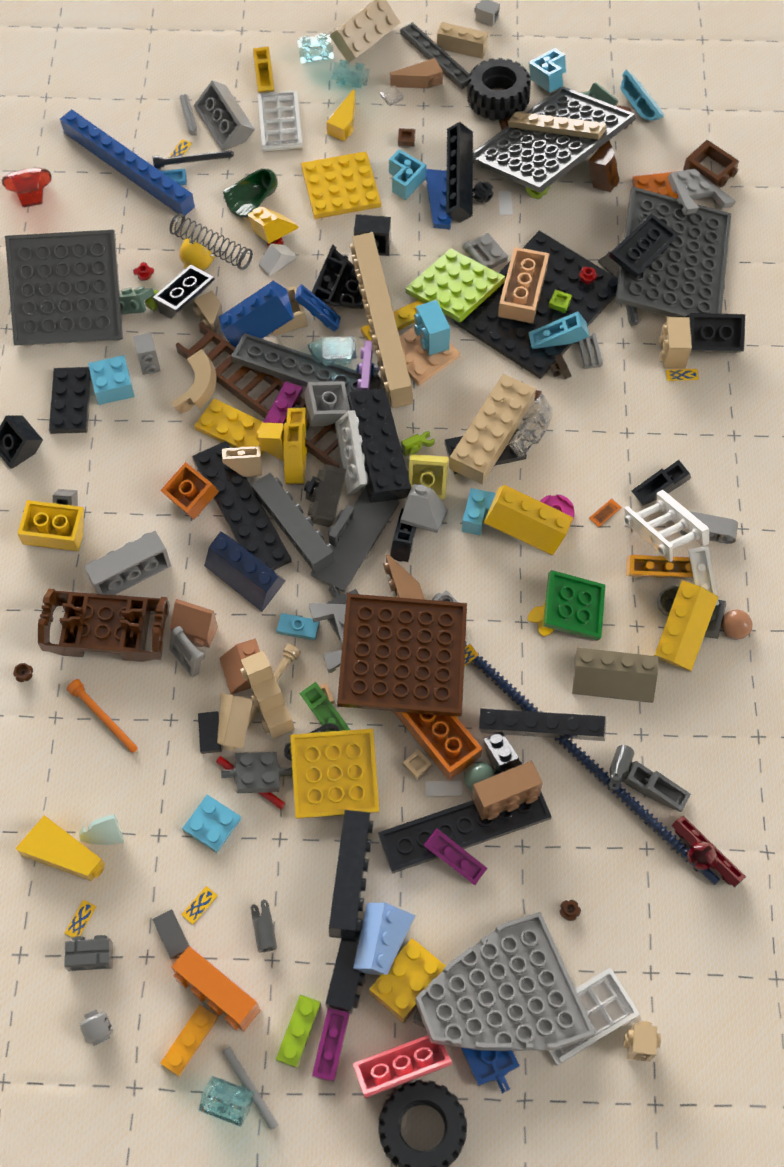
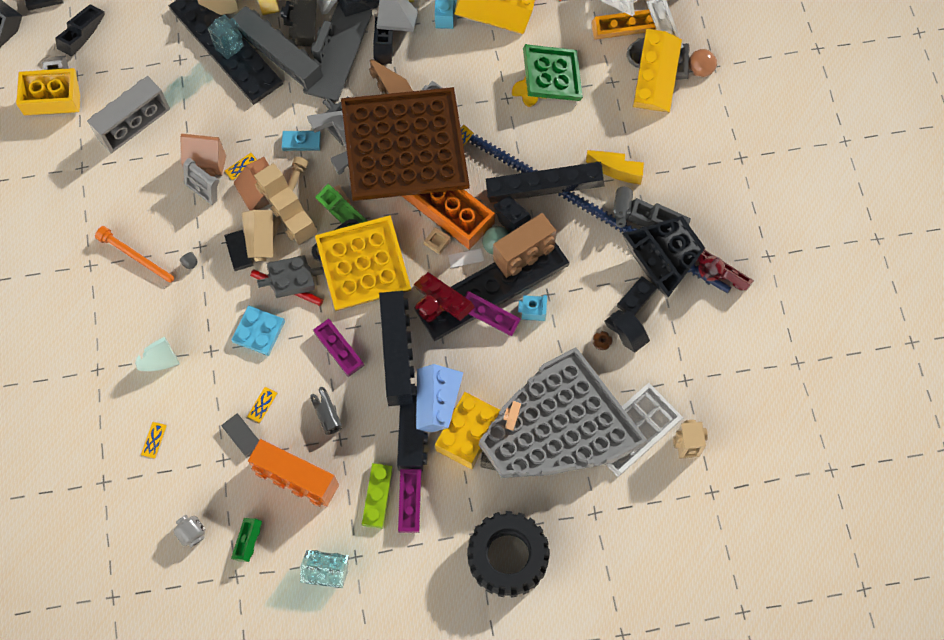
camera: 10 degrees left, 5 degrees up
(23, 667) = (46, 227): reddish brown plate -> none
(58, 849) = (119, 381): yellow slope -> none
(89, 954) = (168, 467): dark grey brick -> none
(97, 465) = (79, 30): none -> black slope
(103, 624) = (117, 171): reddish brown piece -> none
(152, 1050) = (246, 539): none -> green plate
(156, 733) = (189, 260): none -> dark grey hinge
(189, 490) = (172, 36): orange brick -> none
(189, 1040) = (278, 524): light orange plate -> none
(225, 644) = (235, 170): none -> yellow sticker
(242, 571) = (238, 99): dark blue slope -> none
(243, 502) = (226, 36): none -> clear light blue brick
(247, 1083) = (355, 565): light grey bar -> none
(290, 860) = (338, 347): none -> magenta plate
(400, 1065) = (477, 504): coral slope -> none
(406, 830) = (440, 298): none -> dark red plate
(455, 976) = (511, 415): none -> light nougat plate
(491, 1066) = (558, 488): blue plate -> none
(504, 865) = (533, 313): none -> medium azure brick
(600, 904) = (629, 329): none -> black brick
(615, 675) = (601, 127): dark tan slope -> none
(616, 869) = (637, 296): none -> black plate
(621, 720) = (616, 166): none -> yellow slope
(656, 827) = (665, 251): none -> black wedge

